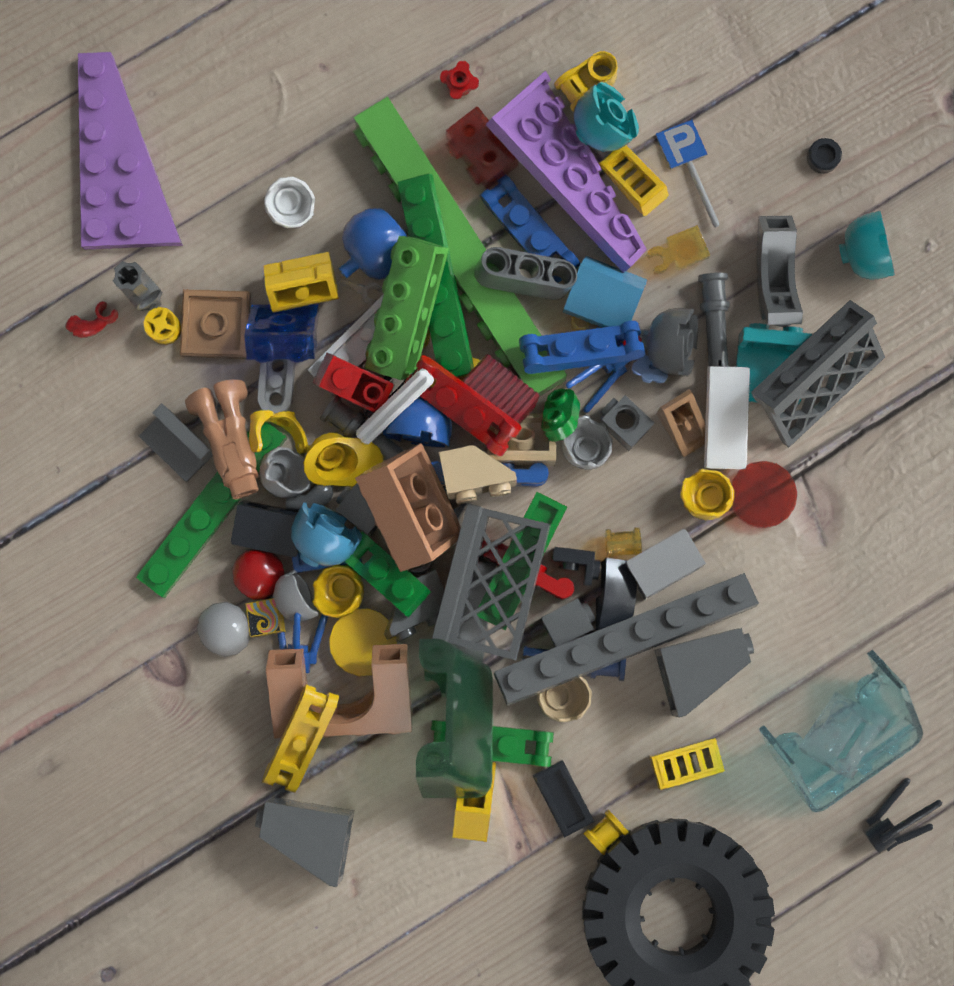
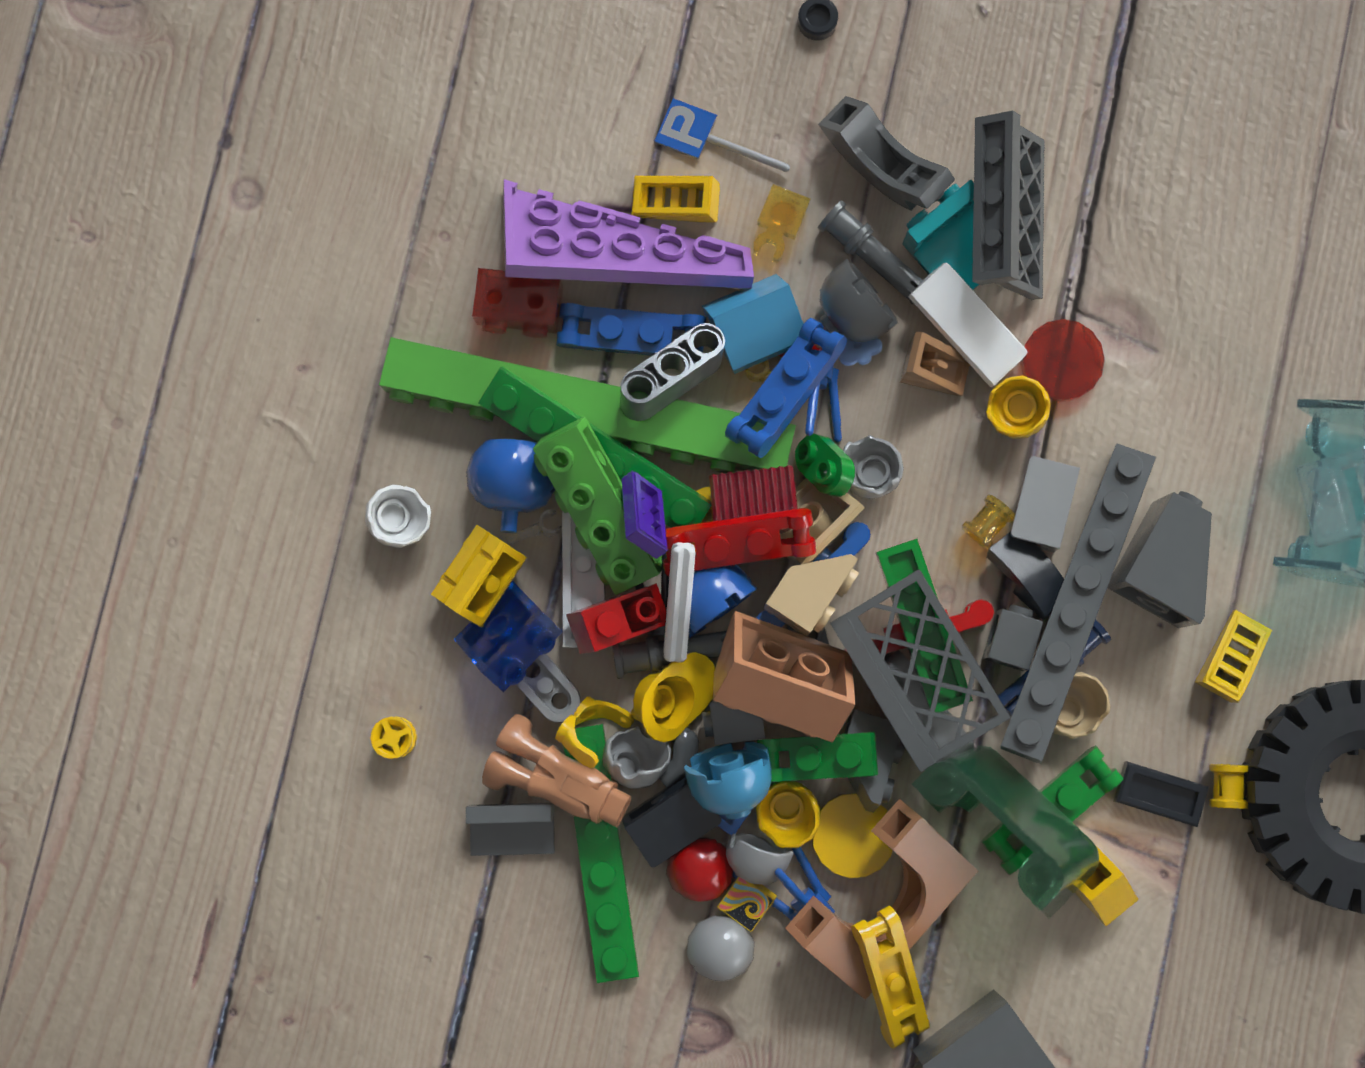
camera: 45 degrees left, 0 degrees up
(88, 328) = (328, 806): red arm -> none
(117, 178) = (219, 647): medium lavender wing -> none
(137, 286) = (340, 725): dark grey piece -> none
(214, 323) = (438, 688): medium nougat tile -> none
(424, 336) = (644, 514): none -> dark purple plate
(461, 89) = (442, 272): red plate -> none
(571, 559) = (959, 579): black bracket -> none
(582, 77) = (548, 158): yellow piece -> none
(603, 119) = (601, 173): teal cylinder -> none
(630, 436) = (901, 406): dark grey brick -> none
(867, 247) = (938, 59): teal cylinder -> none

